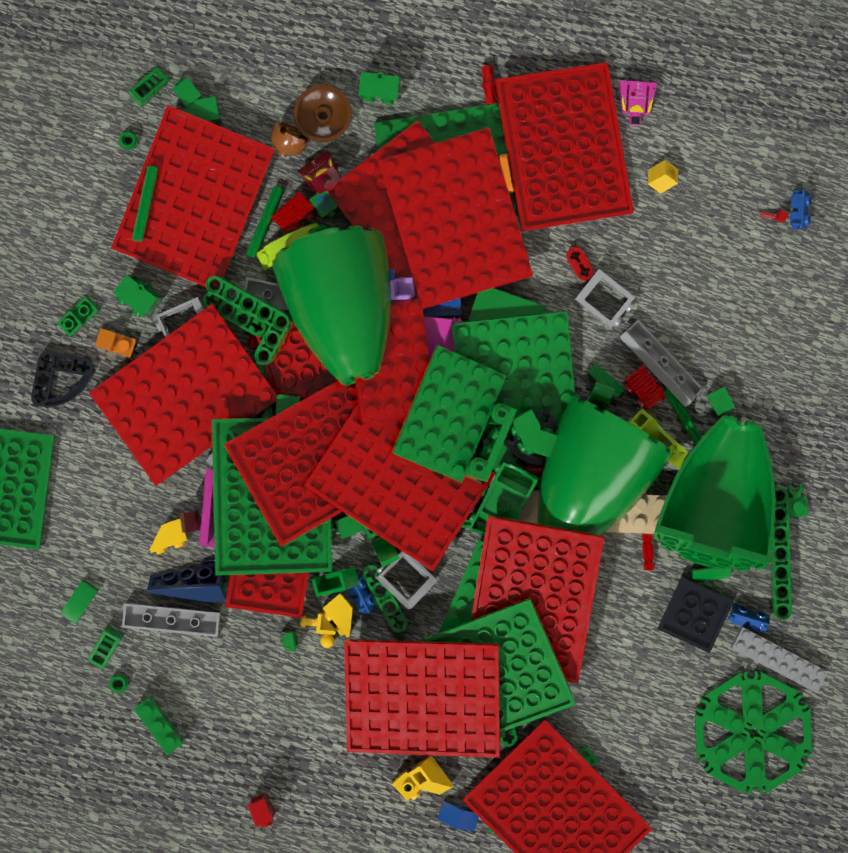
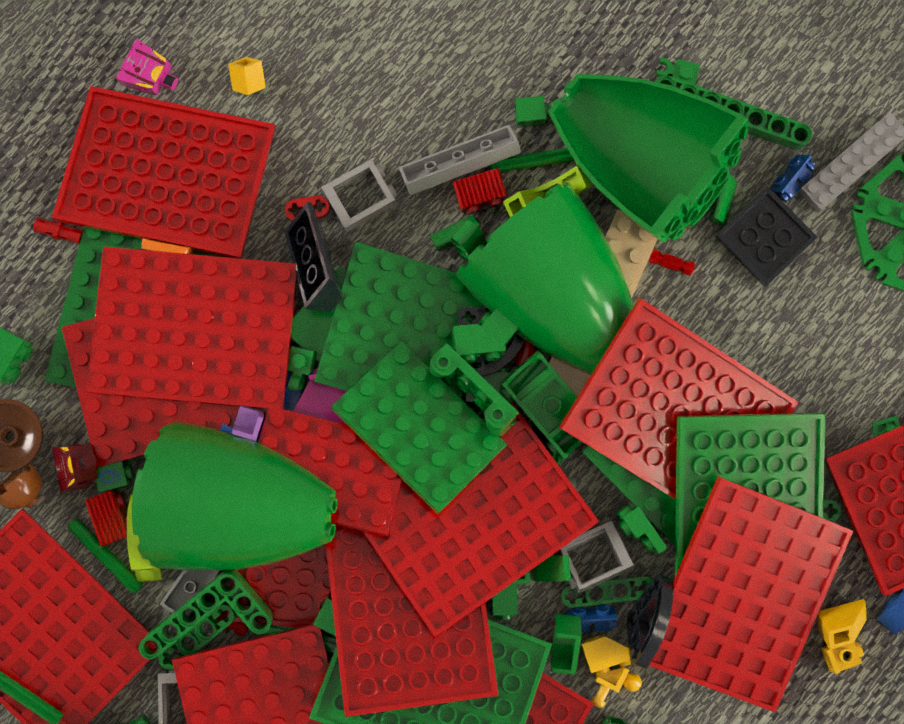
camera: 70 degrees left, 5 degrees down
(376, 634) = (642, 638): none -> black beam
(441, 599) = (635, 524): none -> green plate
(461, 308) = (301, 363): none -> green plate
(539, 287) = (313, 261): none -> black slope

